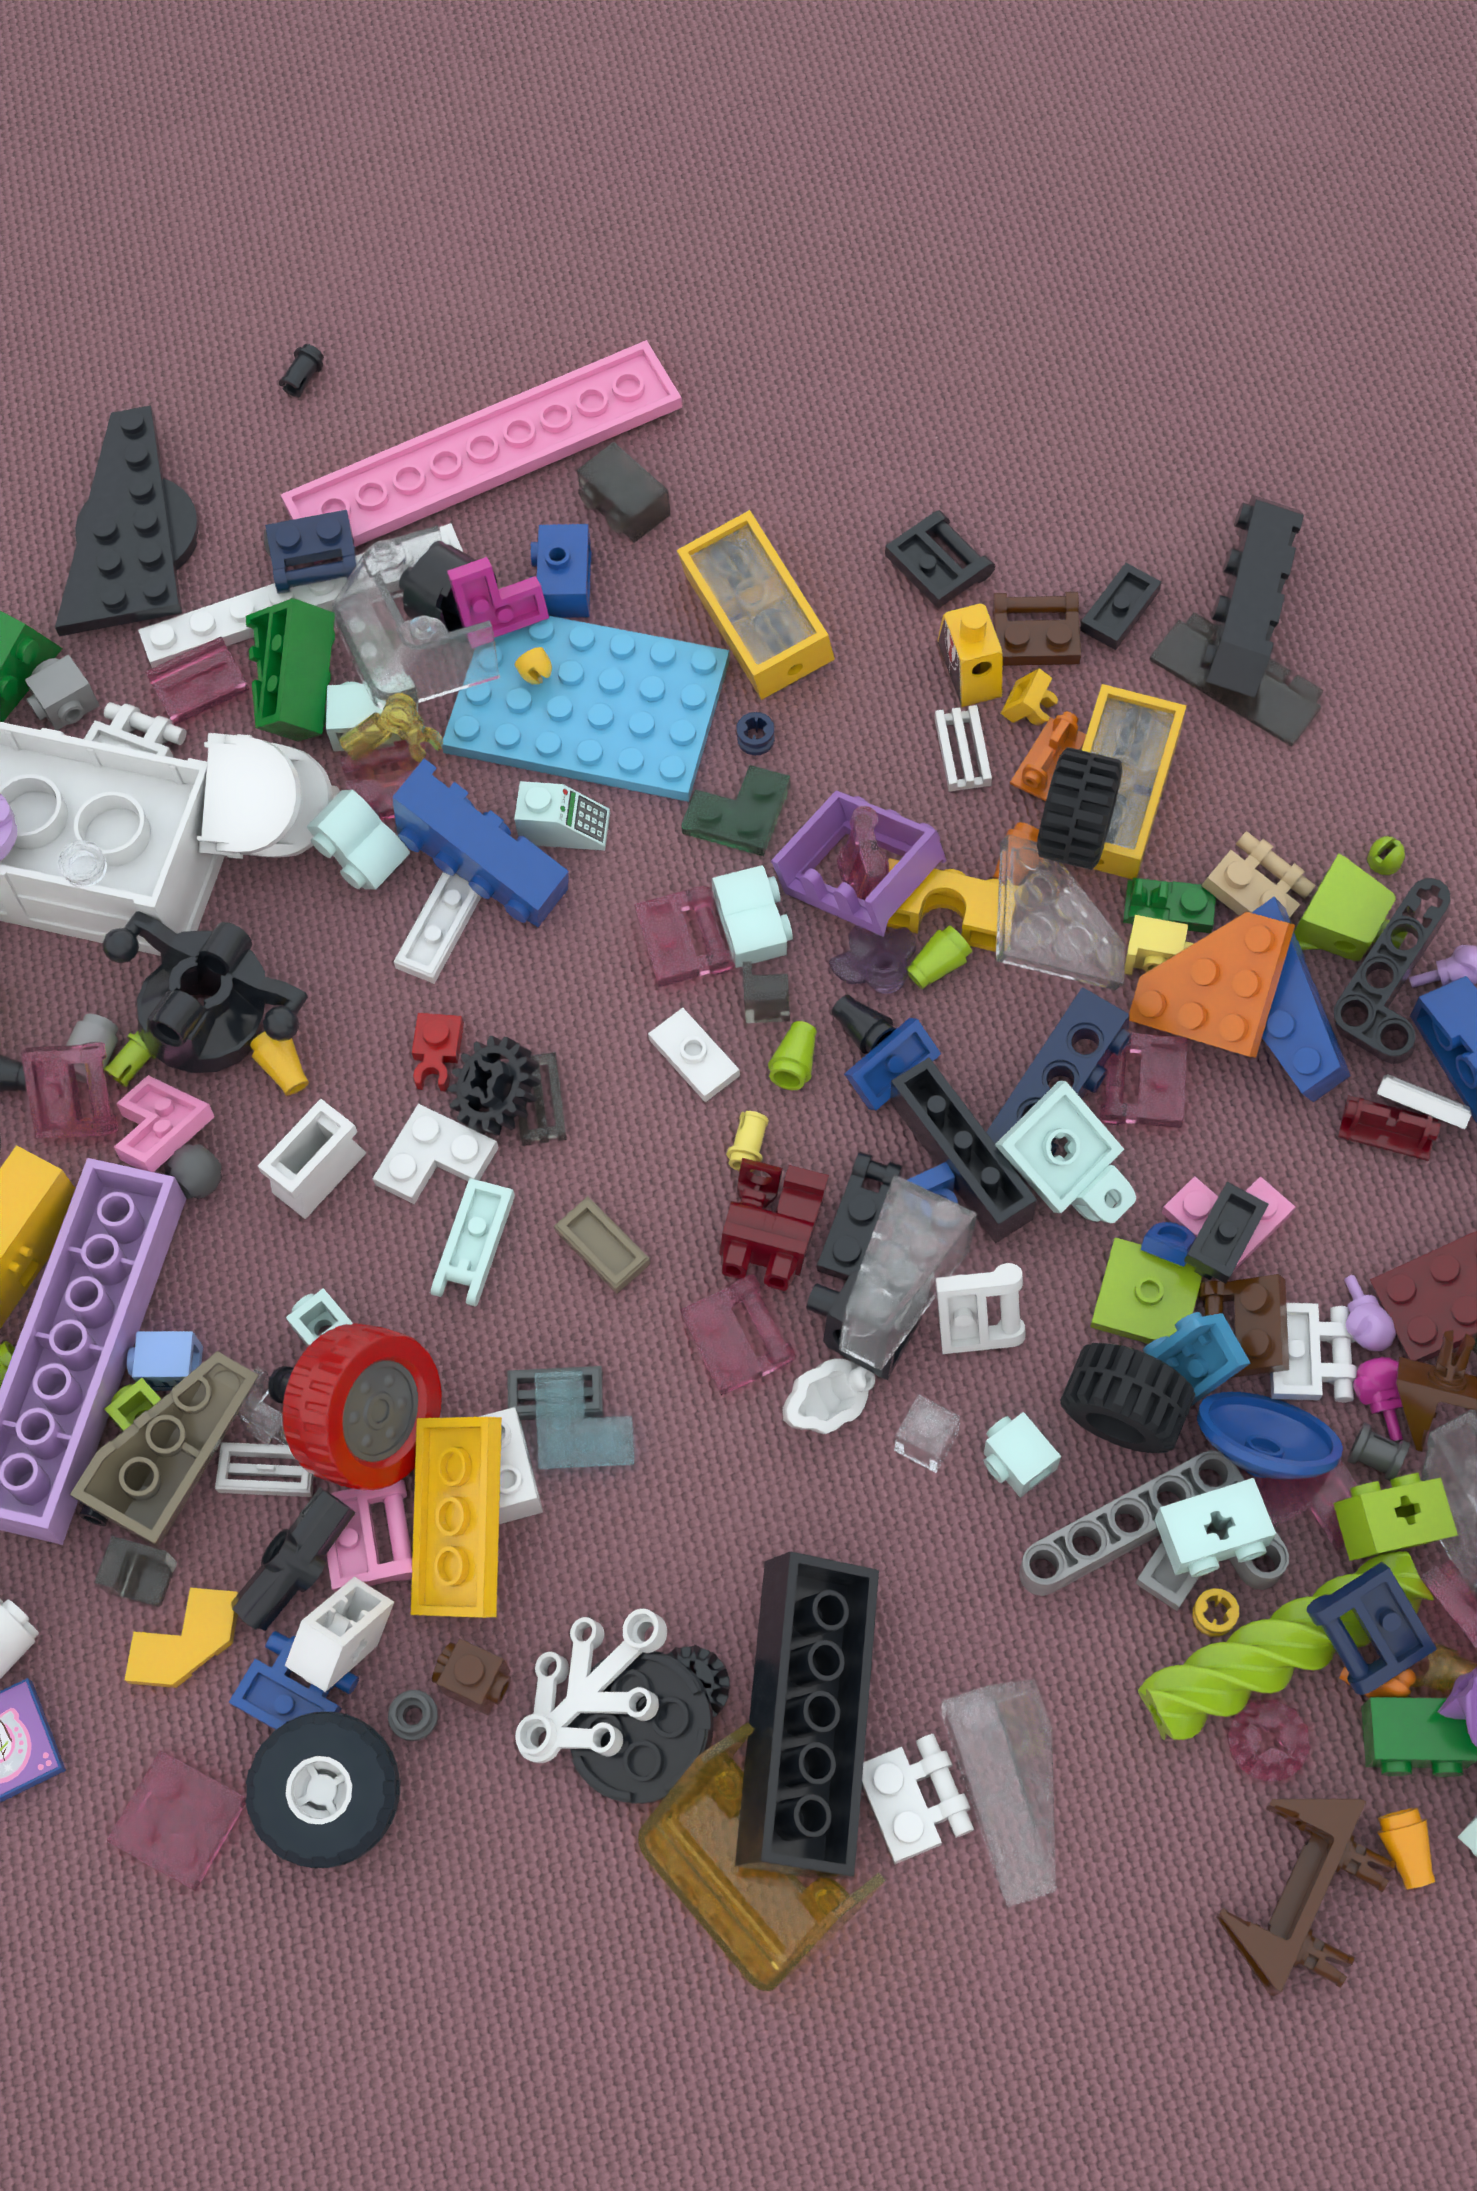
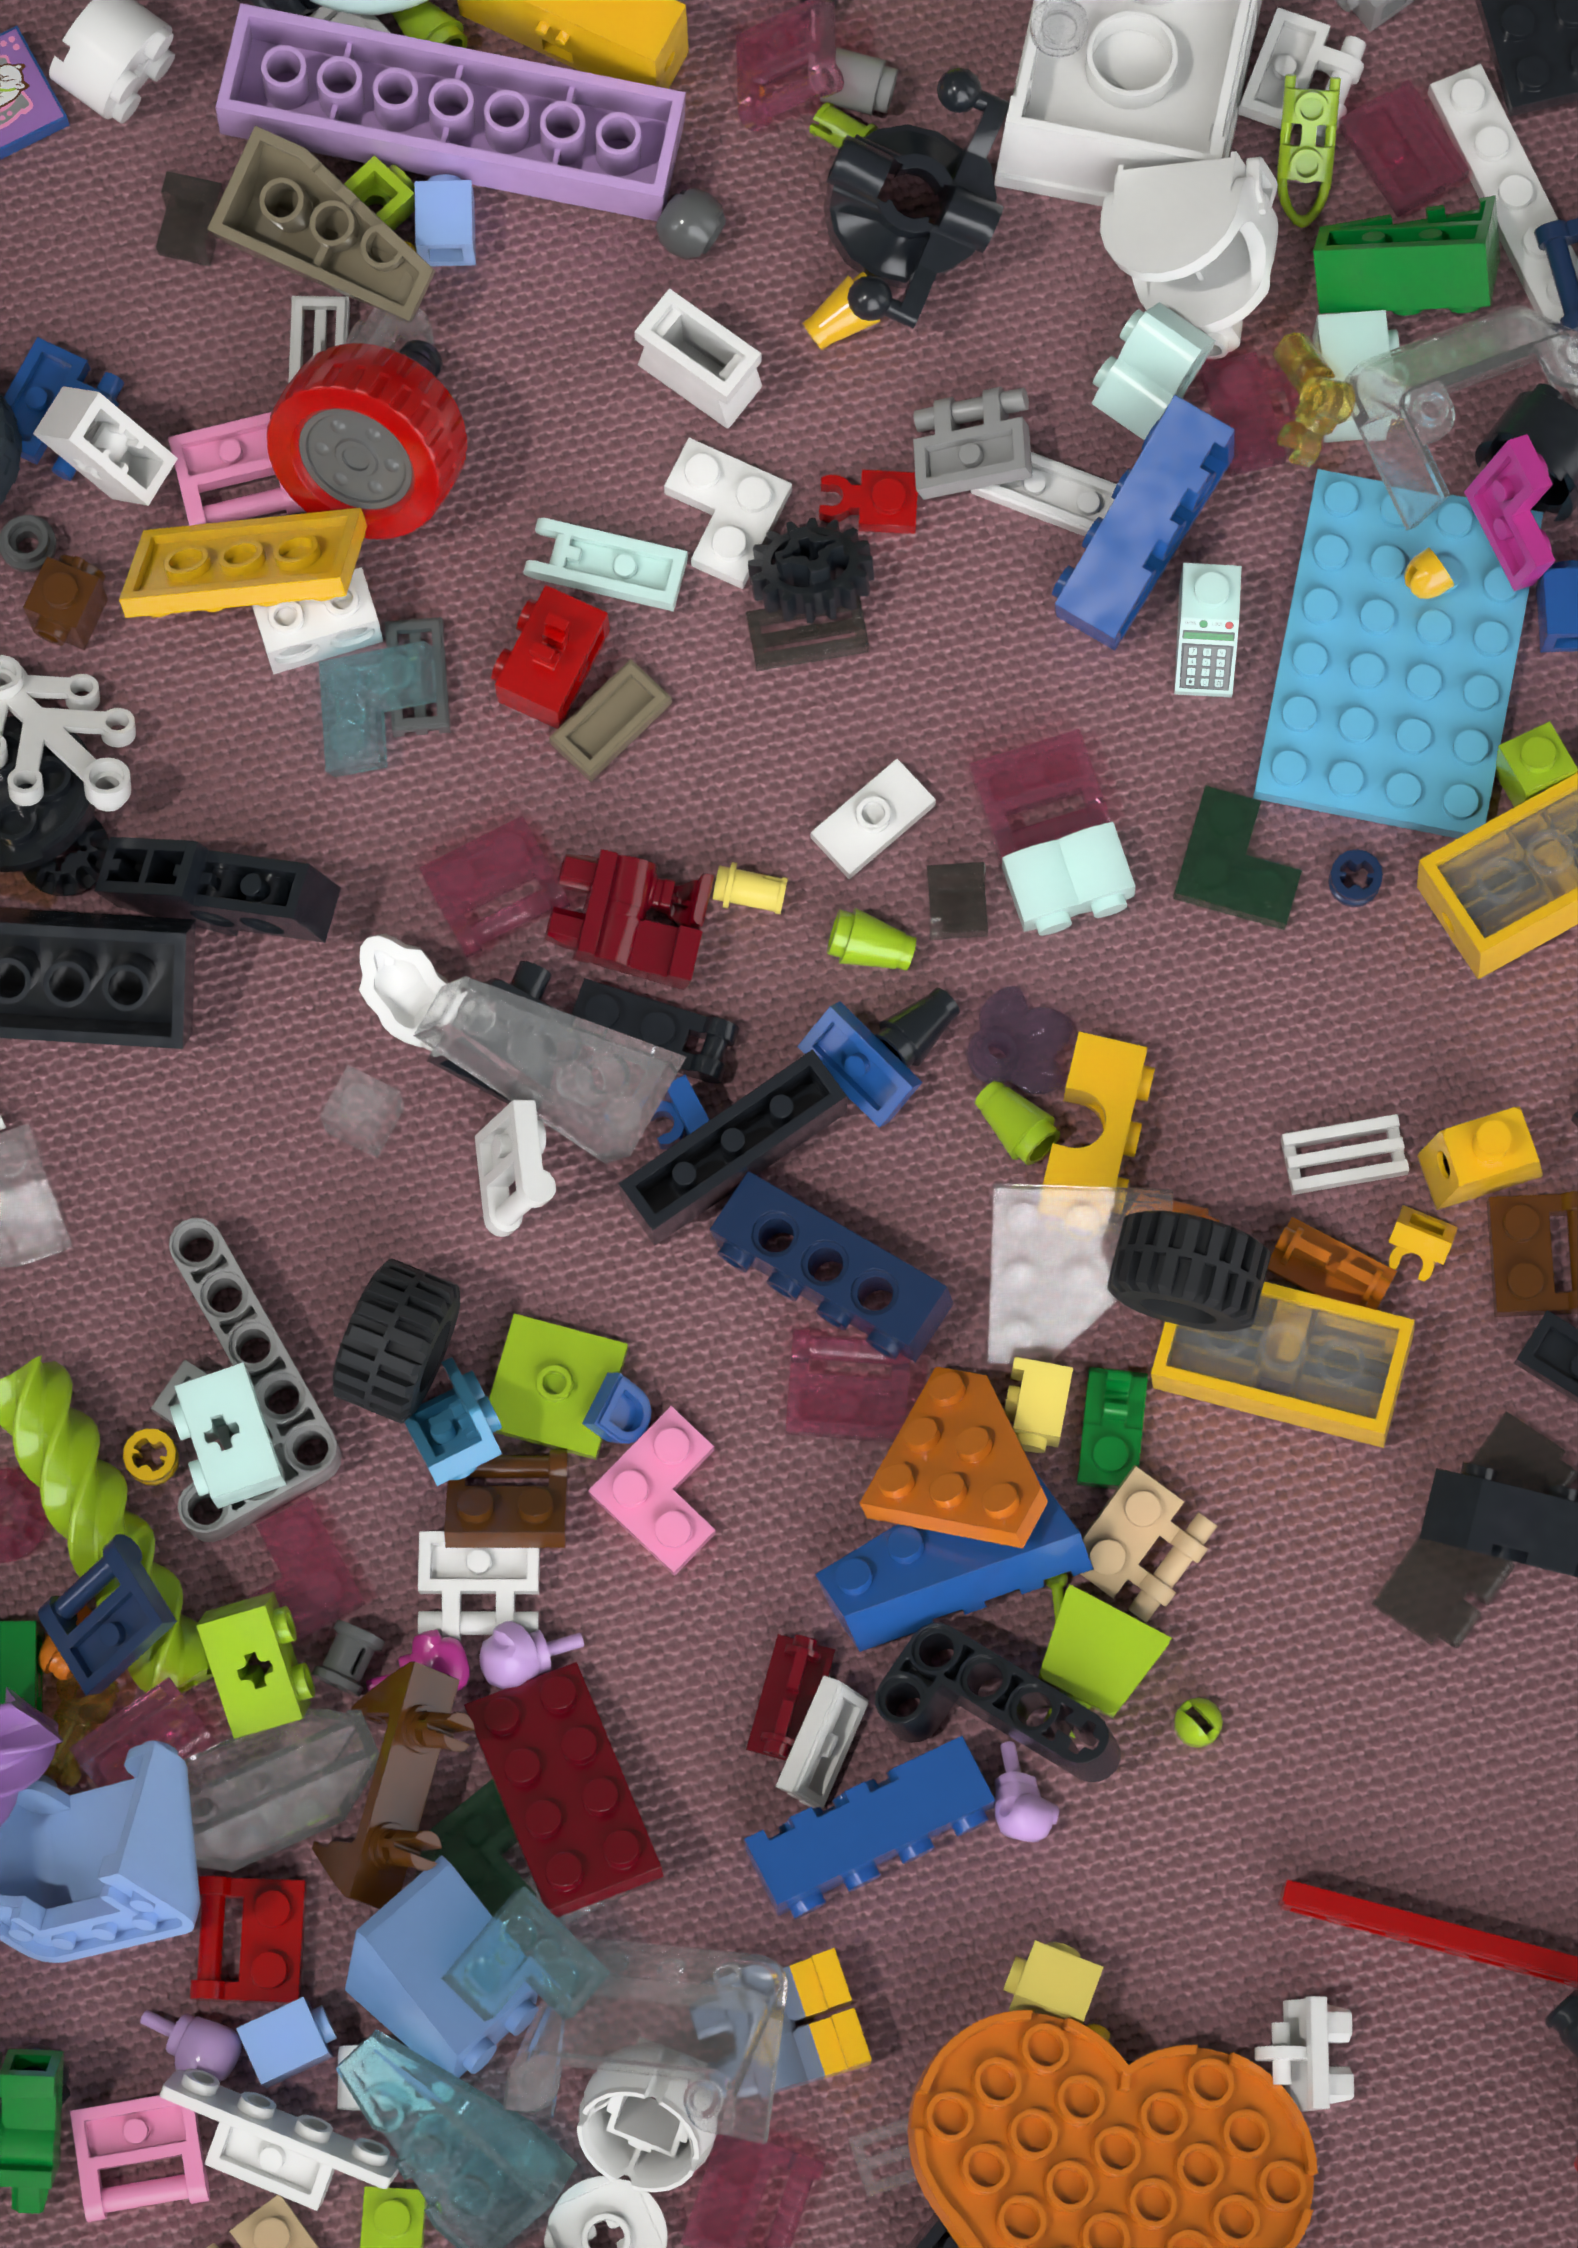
camera: 85 degrees right, 10 degrees up
(165, 725) = (1307, 161): none -> lime piece
(165, 1123) = (744, 186): bright pink plate -> none
(172, 1659) = (123, 306): yellow tile -> none
(292, 1560) = (197, 388): black piece -> none
(313, 1313) = (491, 378): light aqua brick -> none
(411, 969) = (976, 455): none -> light grey plate
(548, 1284) = (551, 656): none -> red brick
(684, 610) = (1532, 763): none -> lime brick
(738, 1544) = (218, 888): none -> black brick
(860, 859) = (1121, 1017): clear pink plate -> none
(913, 841) = (1178, 955): medium lavender window -> none
(1019, 1454) = (340, 1222): light aqua brick -> none
(1084, 1173) = (696, 1293): light aqua plate -> none
(1225, 1233) = (619, 1470): black hinge -> none
(1268, 1436) = (355, 1512): blue dish -> none

